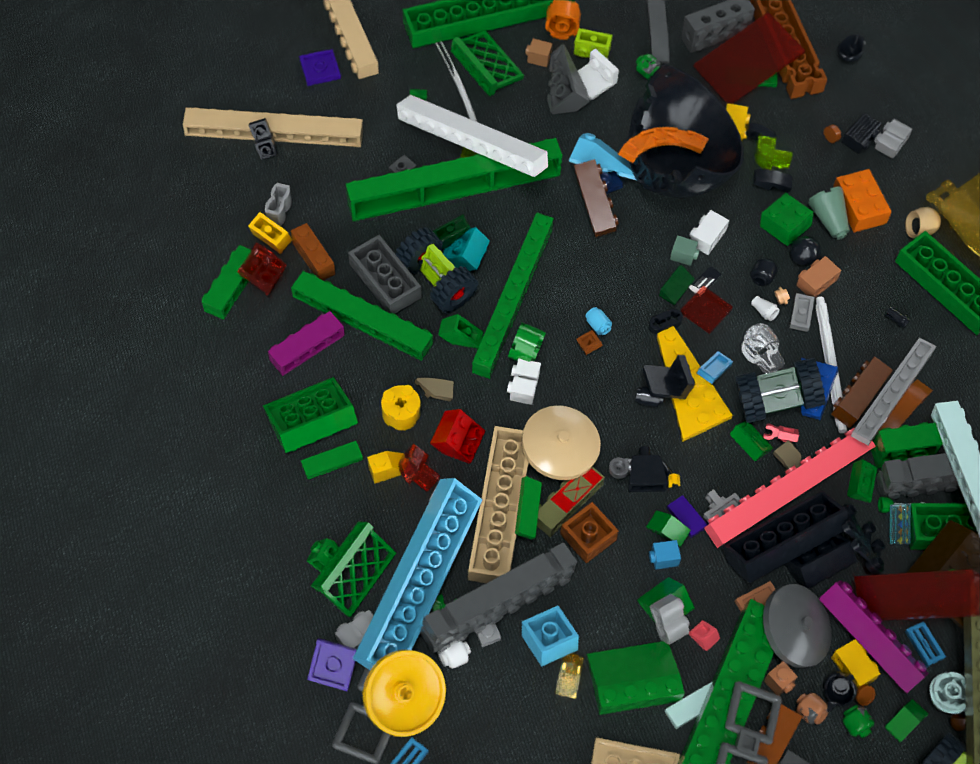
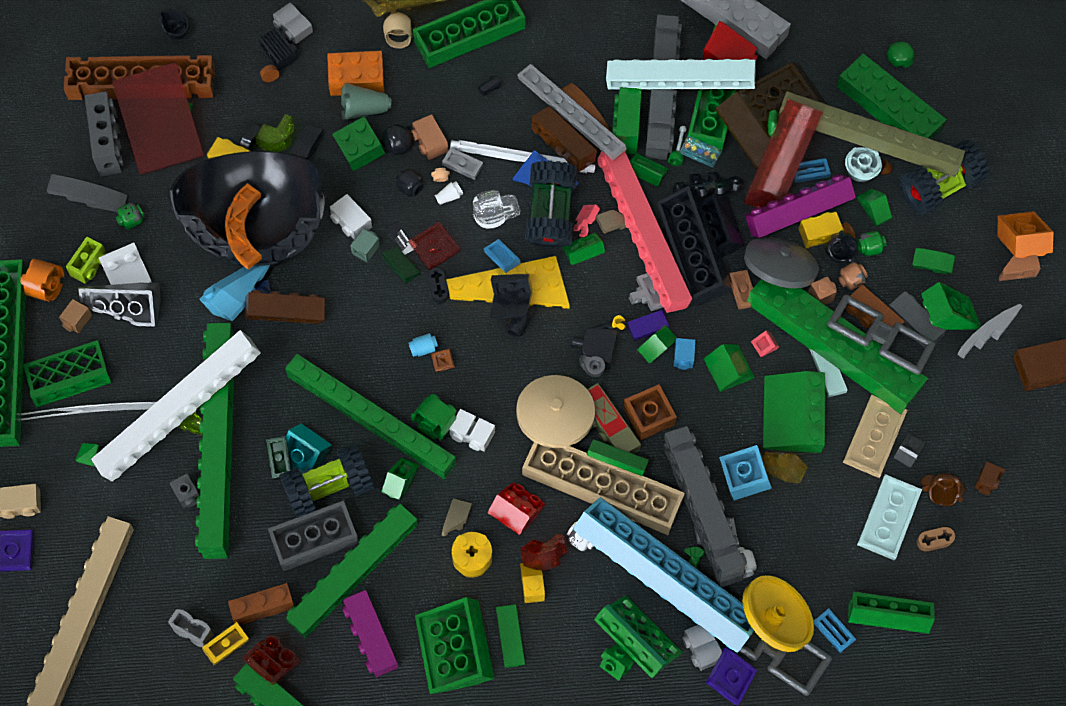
camera: 75 degrees left, 5 degrees up
(263, 138) = (97, 628): black slope -> none
(670, 618) = (751, 365): light grey brick -> none

